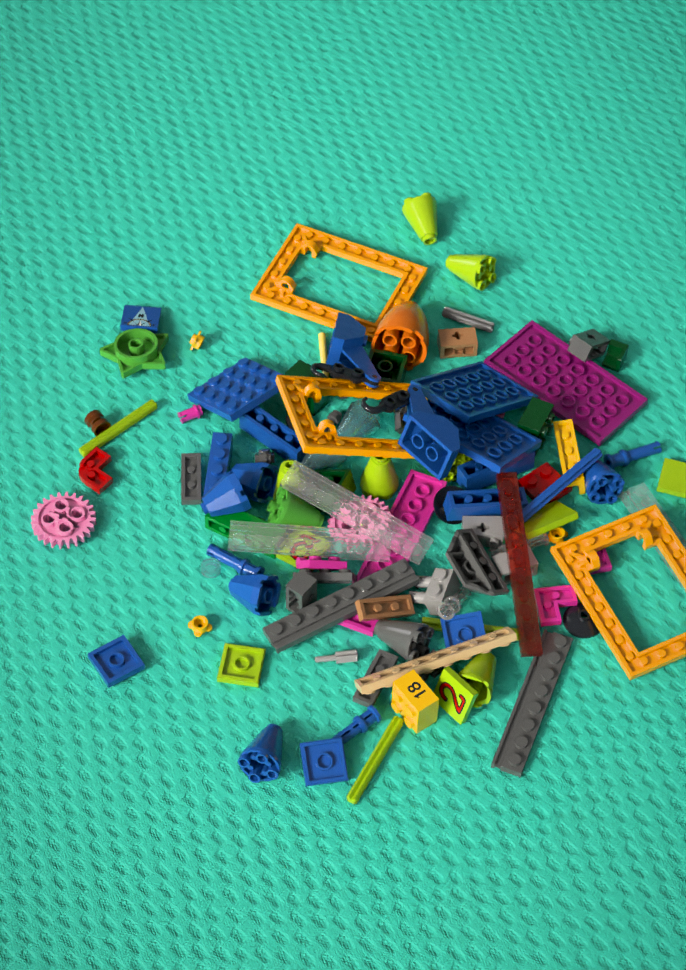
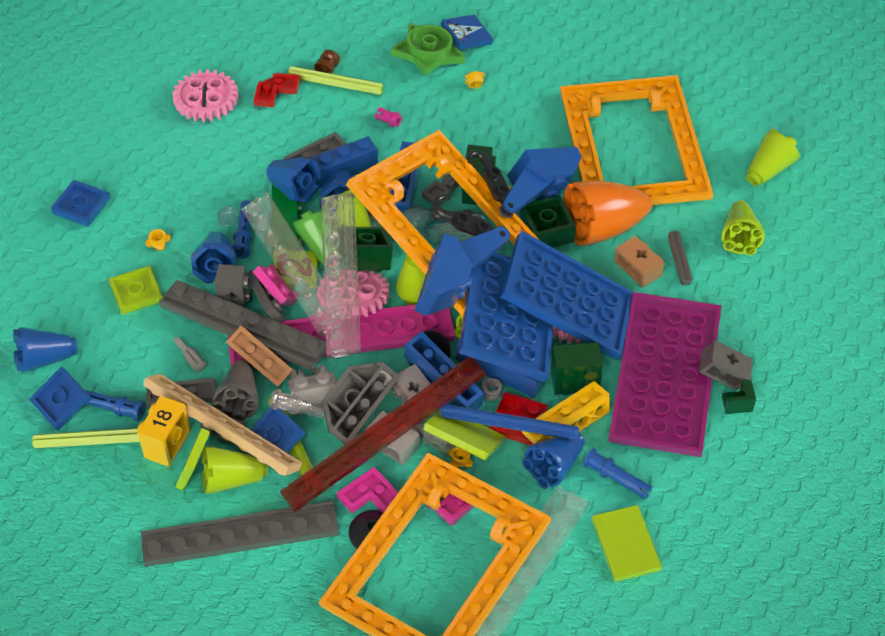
camera: 60 degrees right, 0 degrees up
(236, 389) = (420, 122): blue plate -> none

